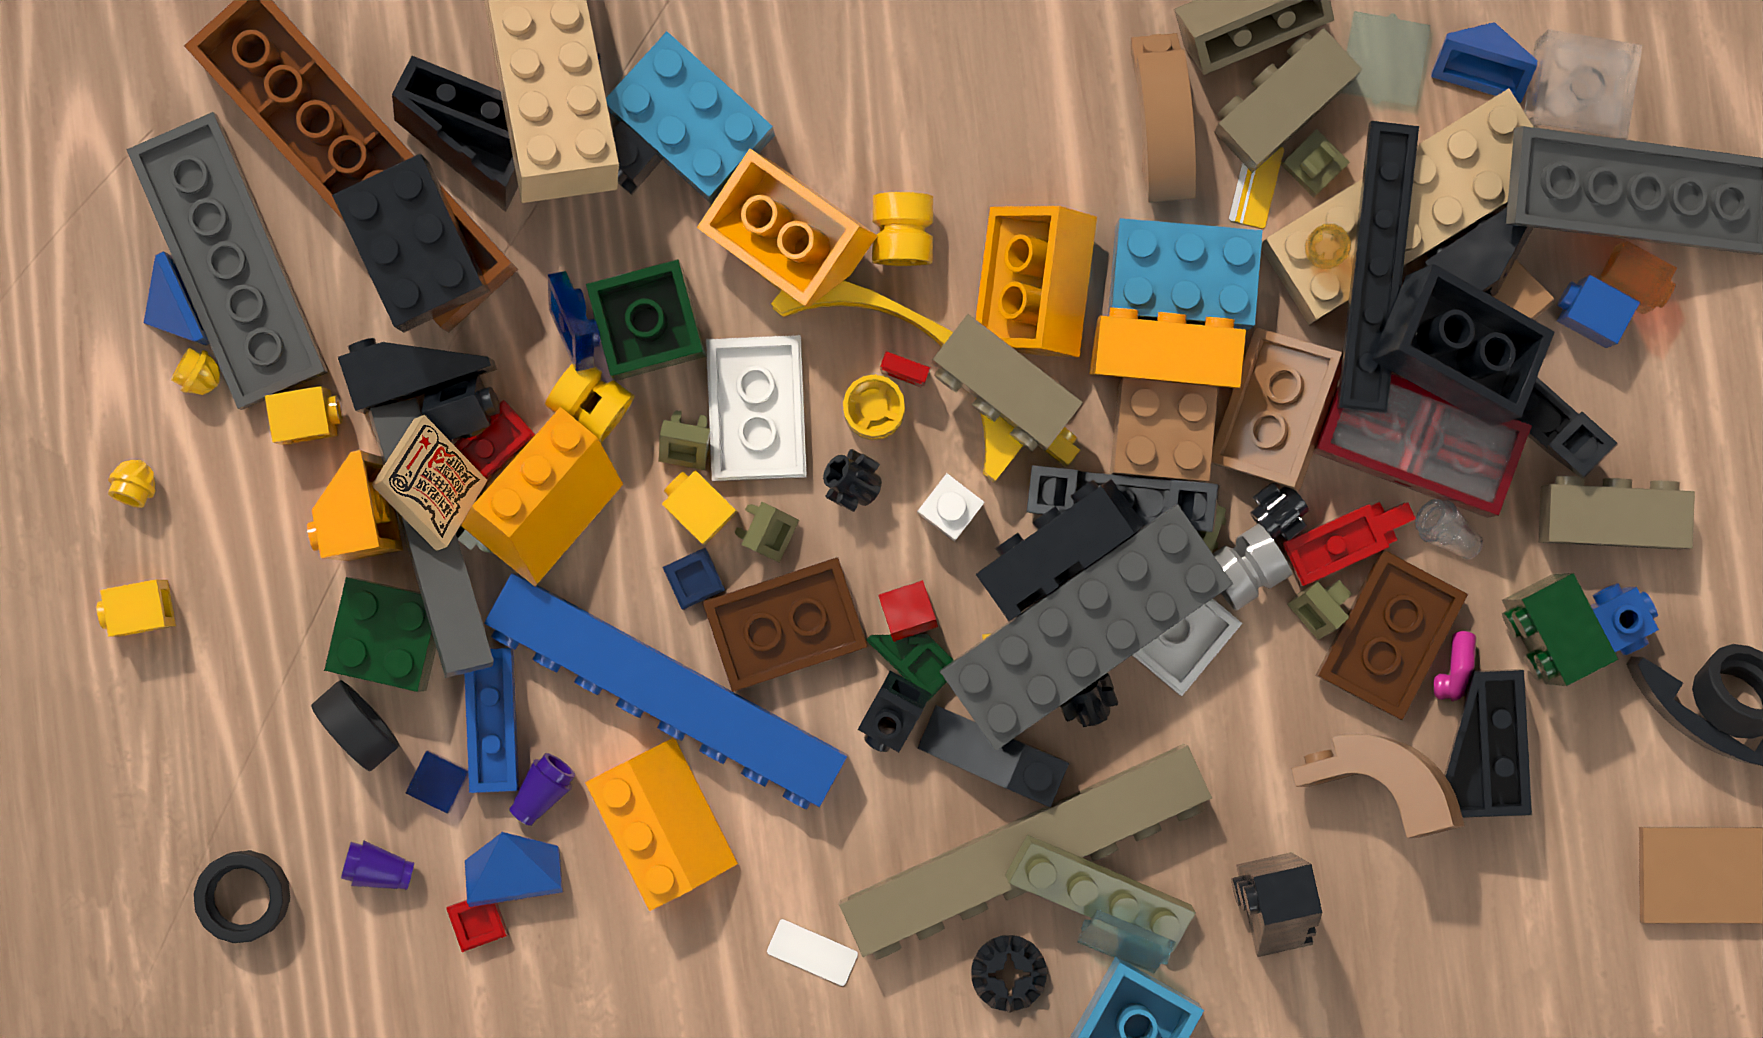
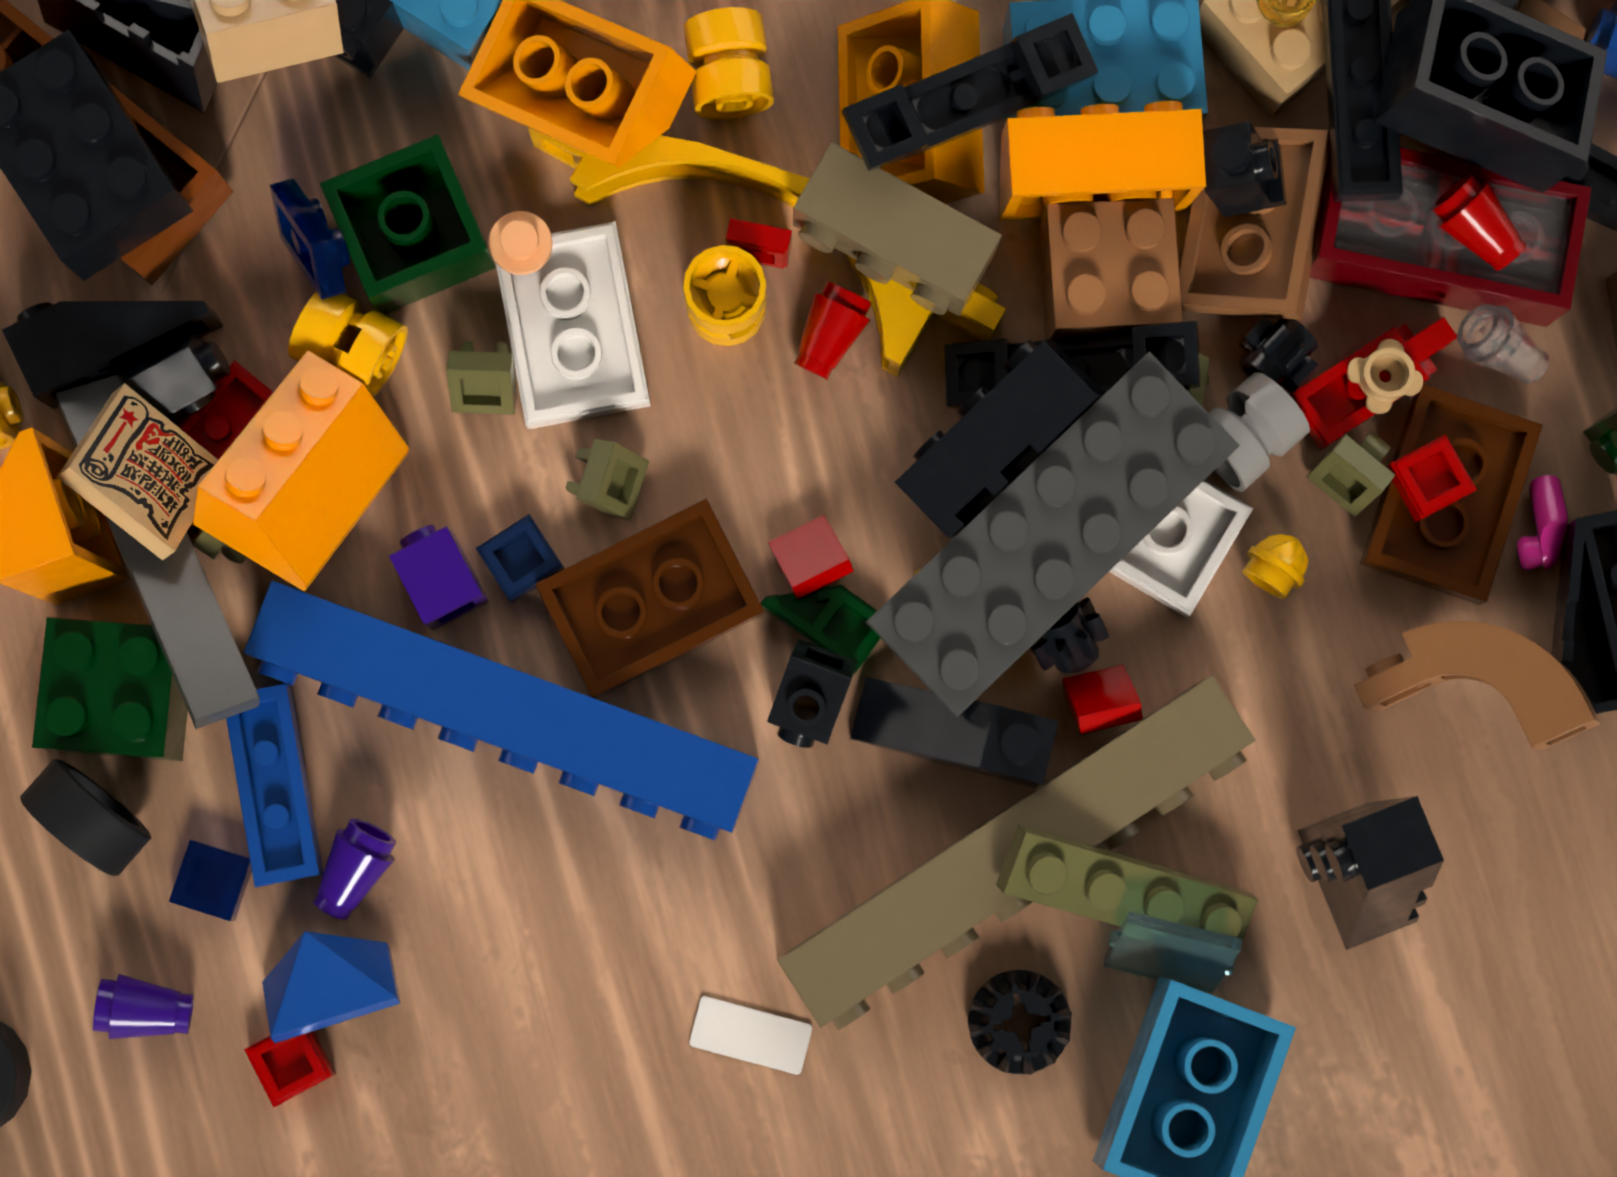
camera: 20 degrees left, 5 degrees down
(631, 584) = (437, 576): none -> dark purple brick
(661, 823) = (520, 888): light orange slope -> none
(698, 506) = (512, 459): yellow brick -> none
(727, 345) = (520, 243): none -> light nougat plate
(852, 480) = (711, 395): black gear -> none
(949, 442) = (831, 328): none -> red cone
(950, 507) = (846, 411): white brick -> none
(1076, 291) = (970, 94): none -> black slope
(1106, 748) = (1102, 699): none -> red tile
(1253, 667) = (1277, 565): none -> yellow plate
(1272, 373) = (1242, 170): none -> black brick
(1360, 529) = (1388, 358): none -> tan plate
(1376, 623) = (1431, 478): none -> red tile
(1439, 442) = (1479, 222): none -> red cone

